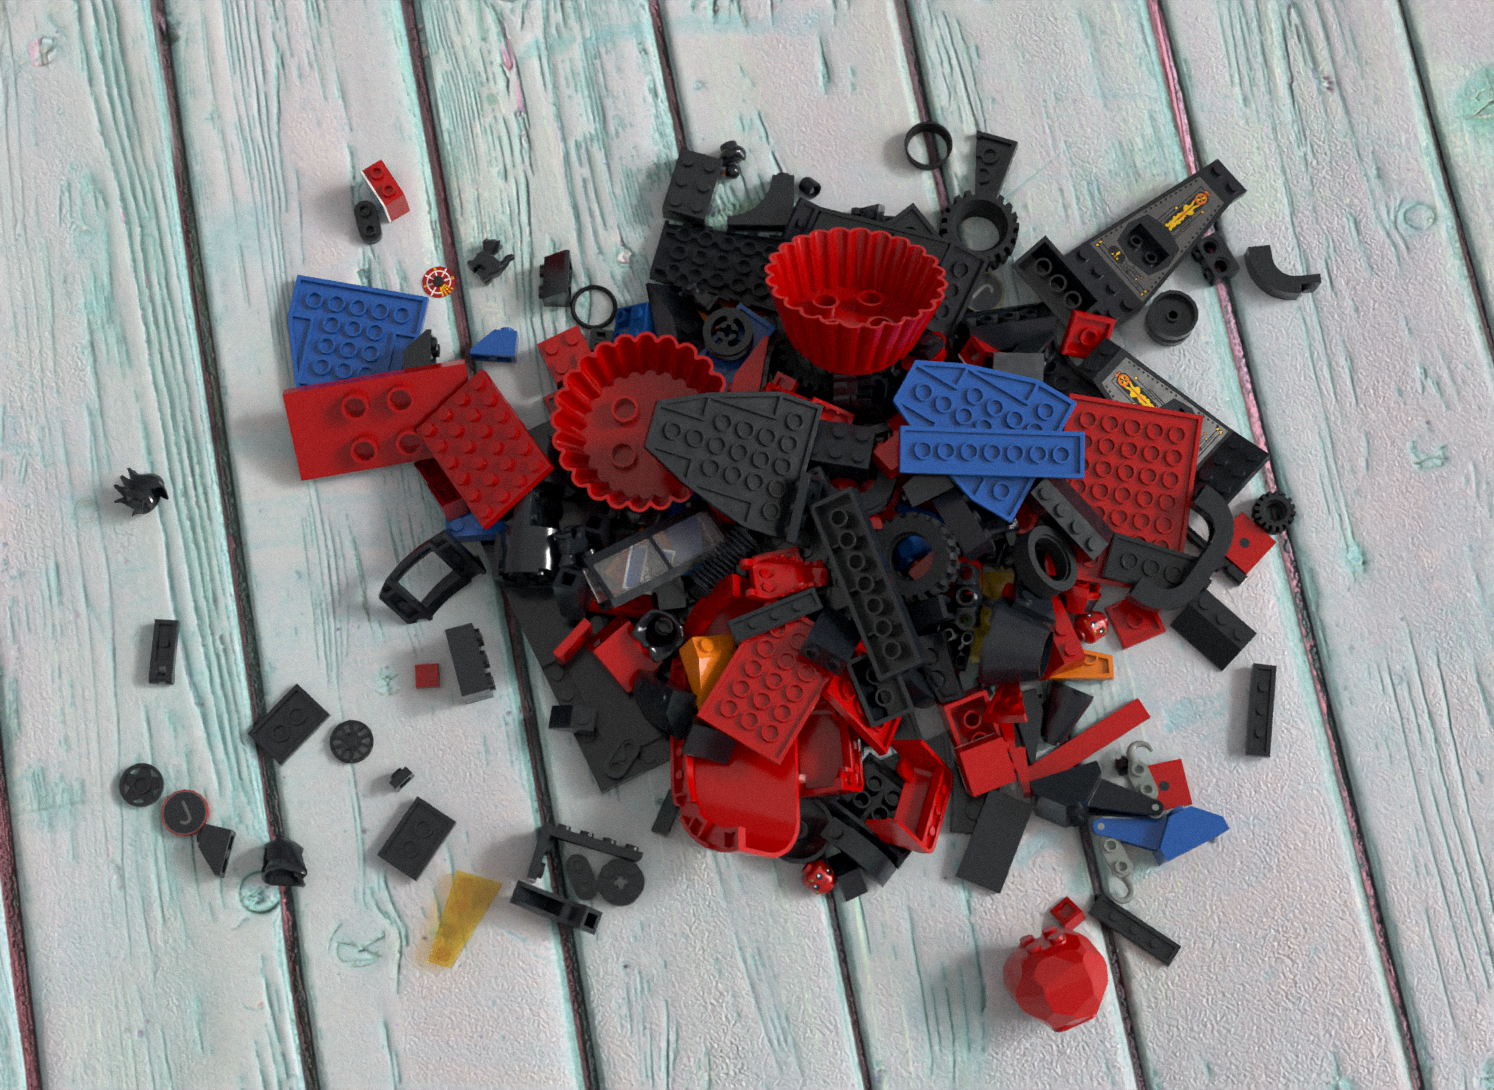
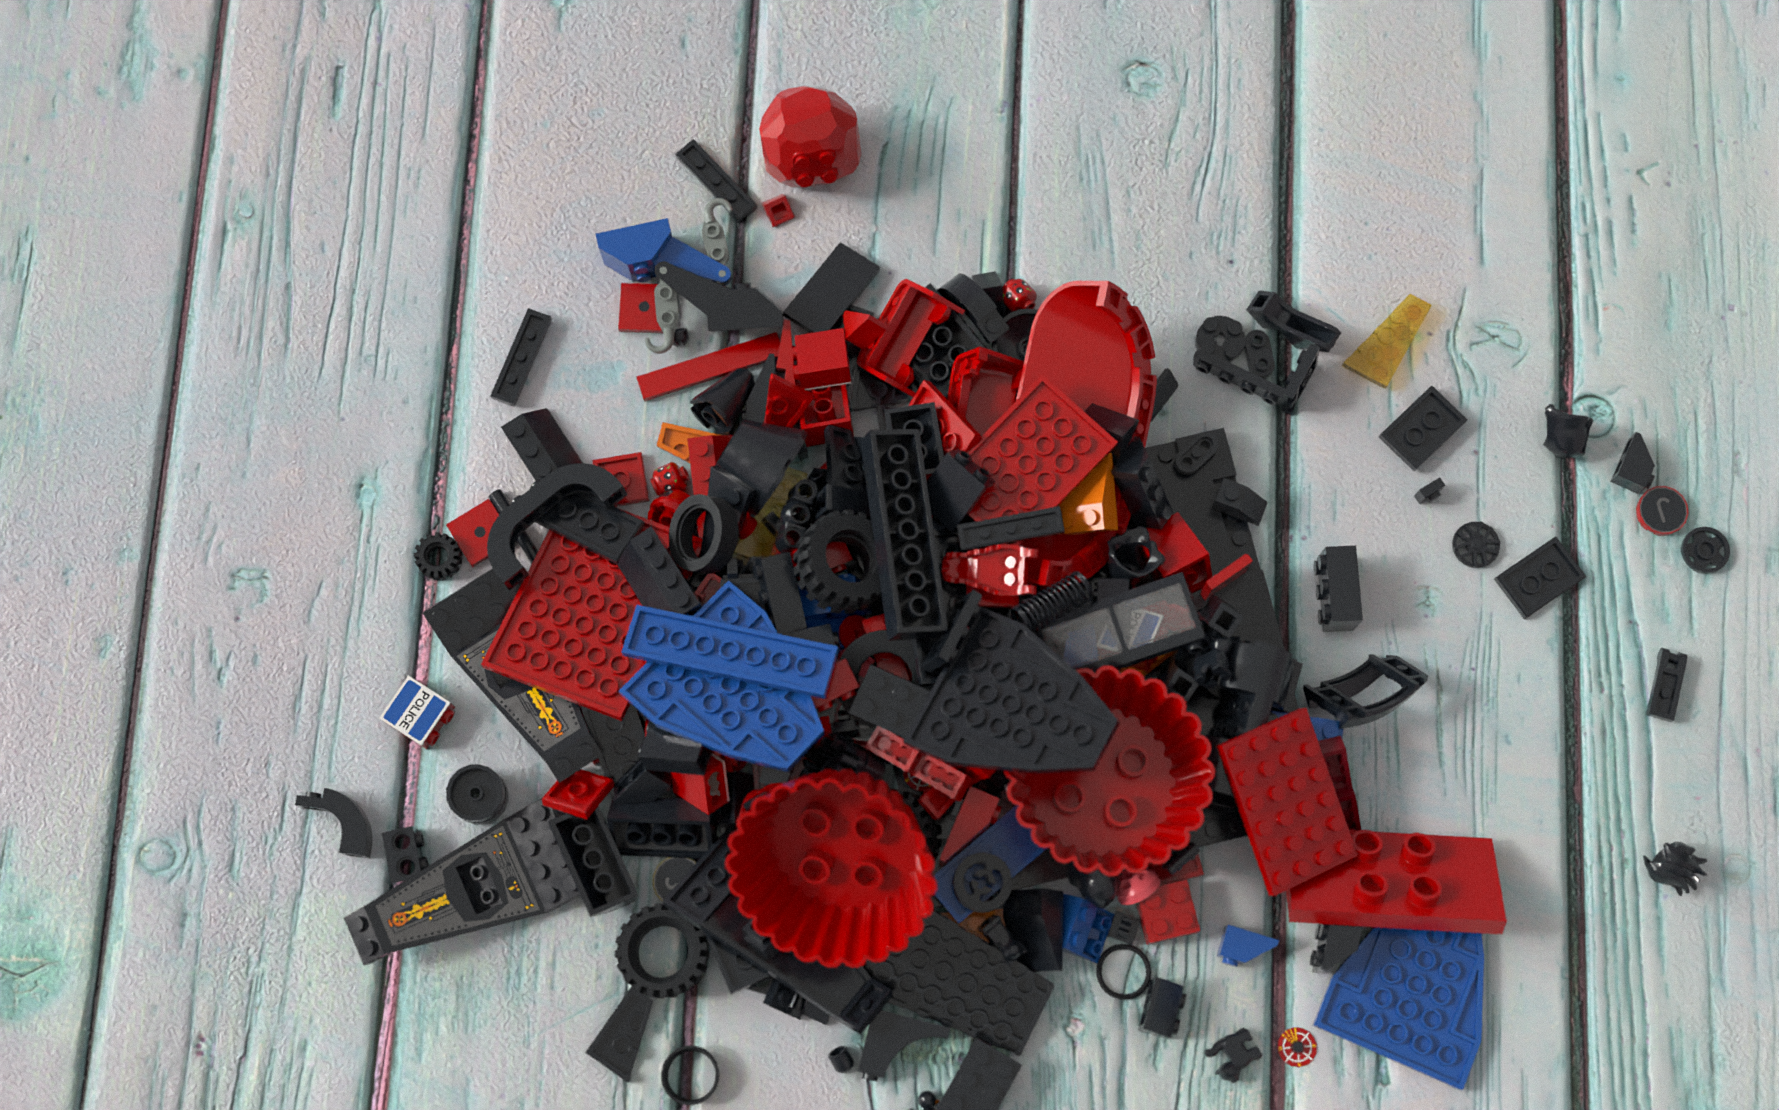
camera: 165 degrees left, 0 degrees up
(427, 676) = (1384, 594): red tile -> none
(957, 802) = (862, 328): none -> red slope
(1244, 375) = (418, 713): none -> piece

